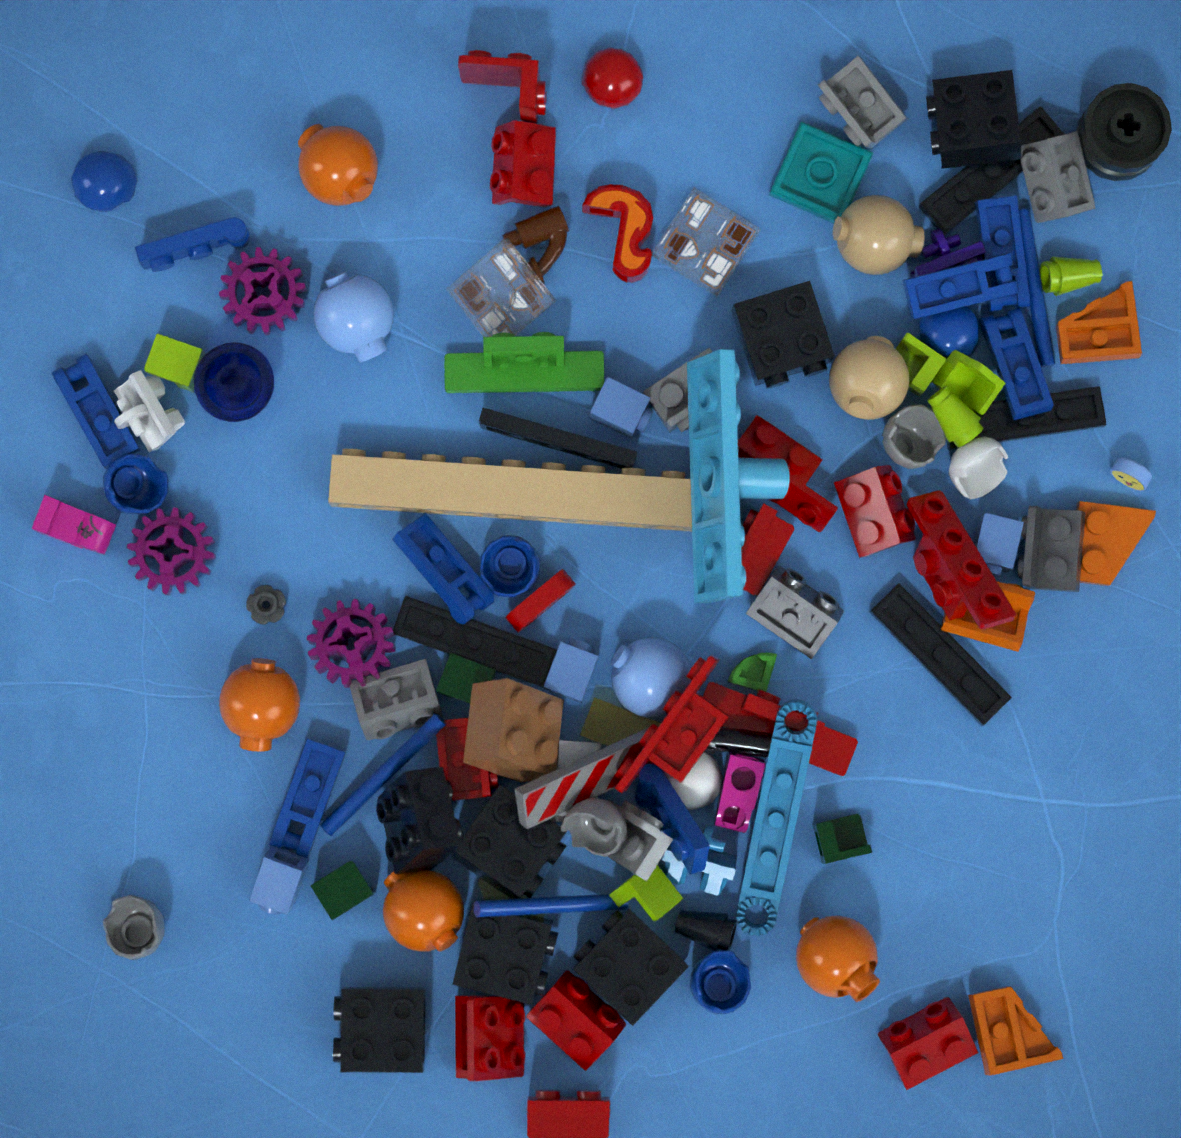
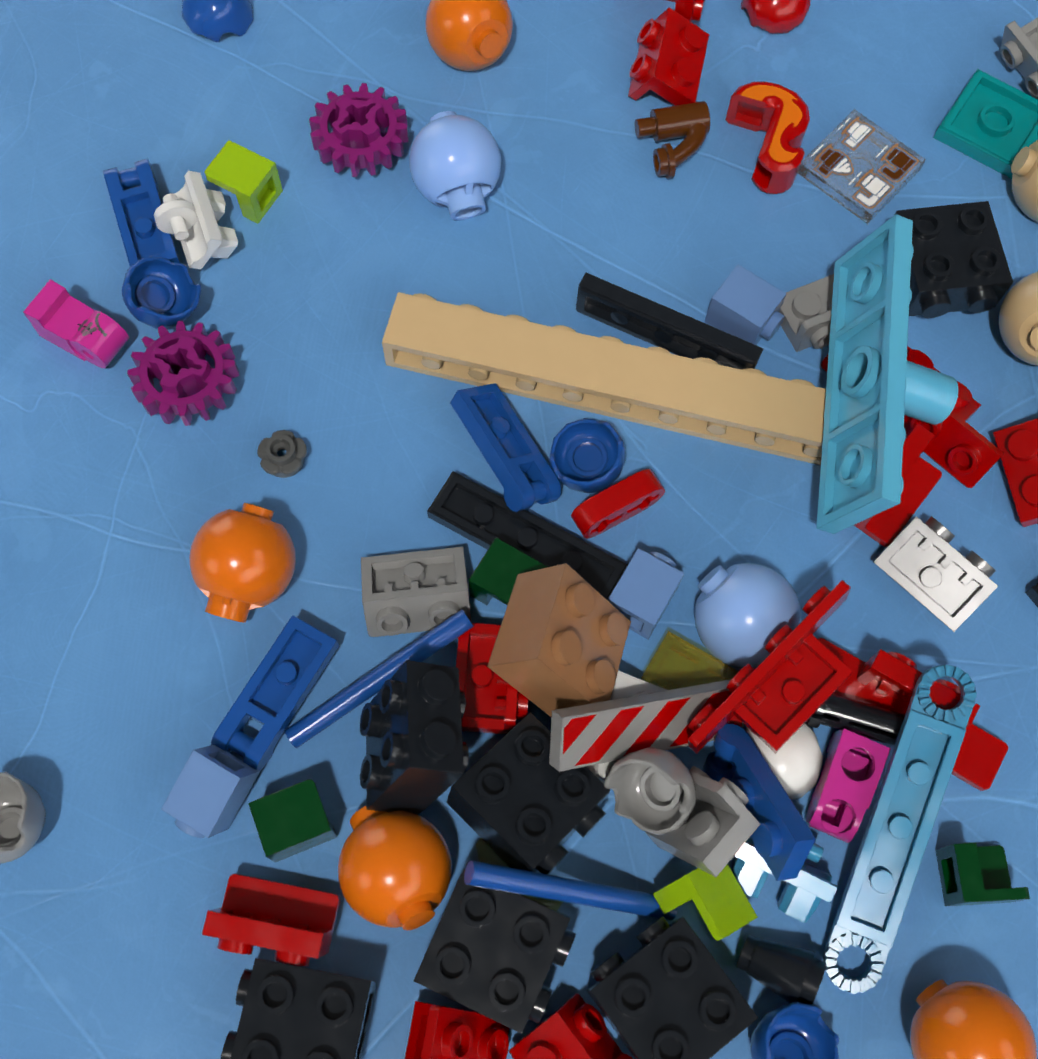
camera: 15 degrees right, 15 degrees down
(193, 243) = (293, 72): blue plate -> none
(234, 382) = (303, 202): clear blue cone -> none
(335, 646) = (374, 511): magenta gear -> none
(346, 959) = (274, 916): none -> red bracket
(501, 292) = (625, 173): clear tile -> none
(523, 365) = (639, 242): bright green bracket -> none
(754, 671) = (874, 634): bright green tile -> none

